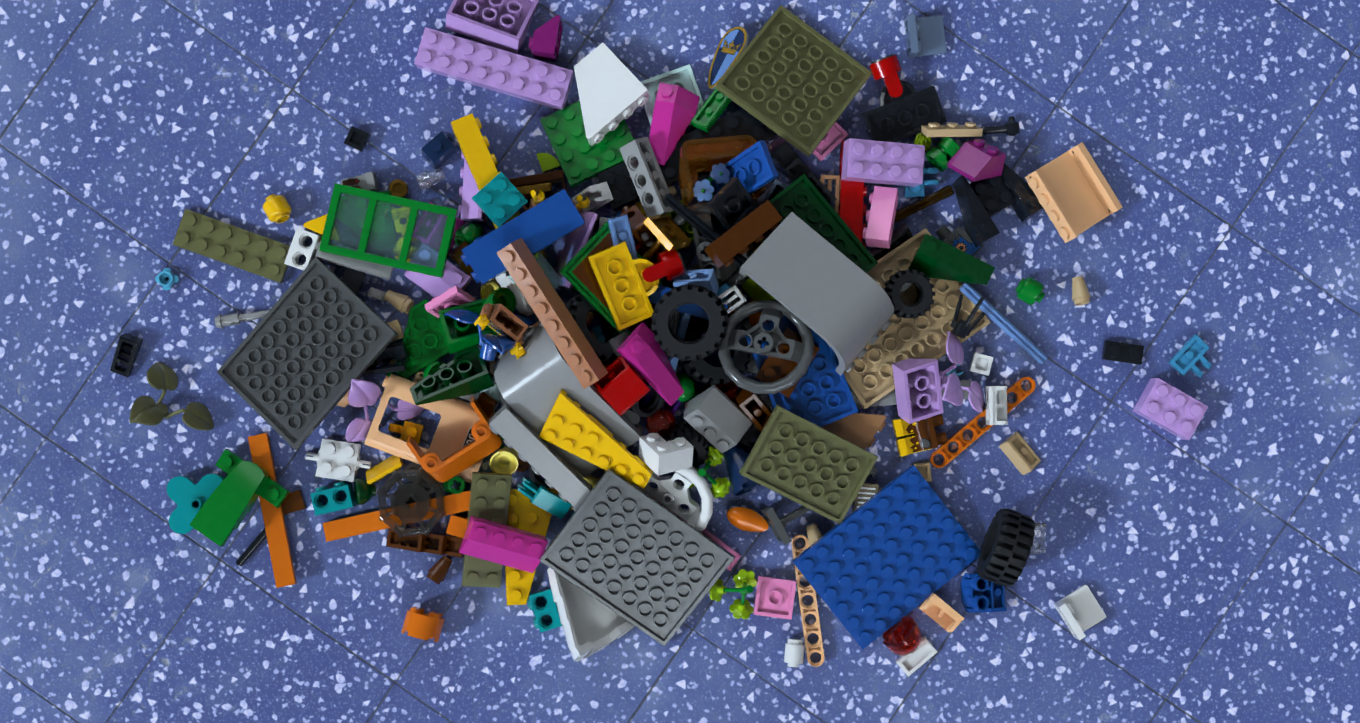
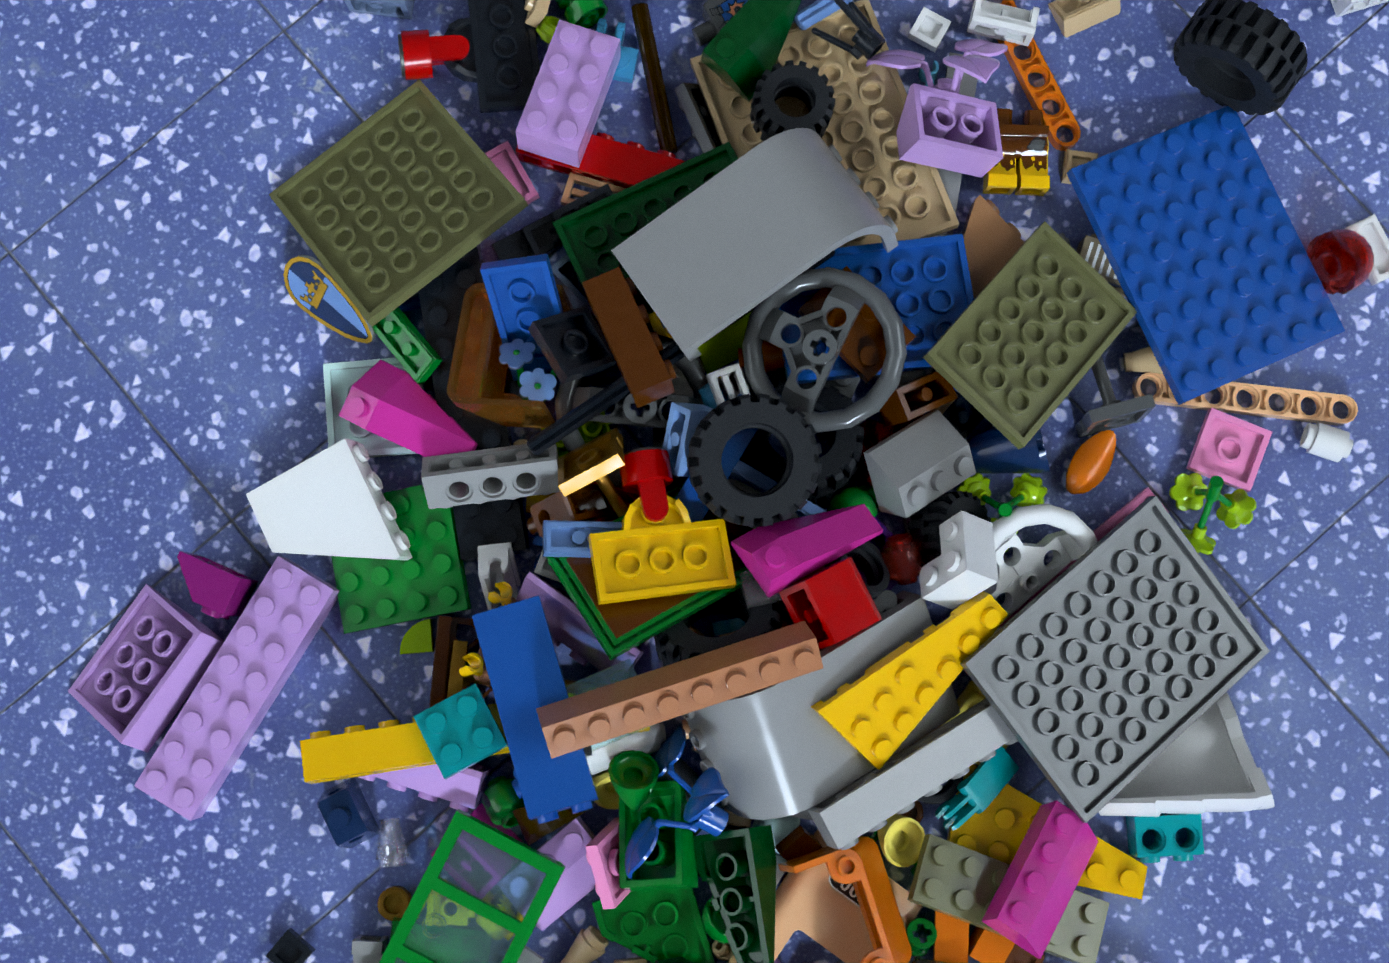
camera: 80 degrees left, 5 degrees down
(504, 324) = (674, 777): nougat torso -> none
(881, 217) = (655, 121): bright pink brick -> none
(941, 613) = (1314, 190): light nougat hinge -> none
(981, 594) = (1300, 123): blue slope -> none

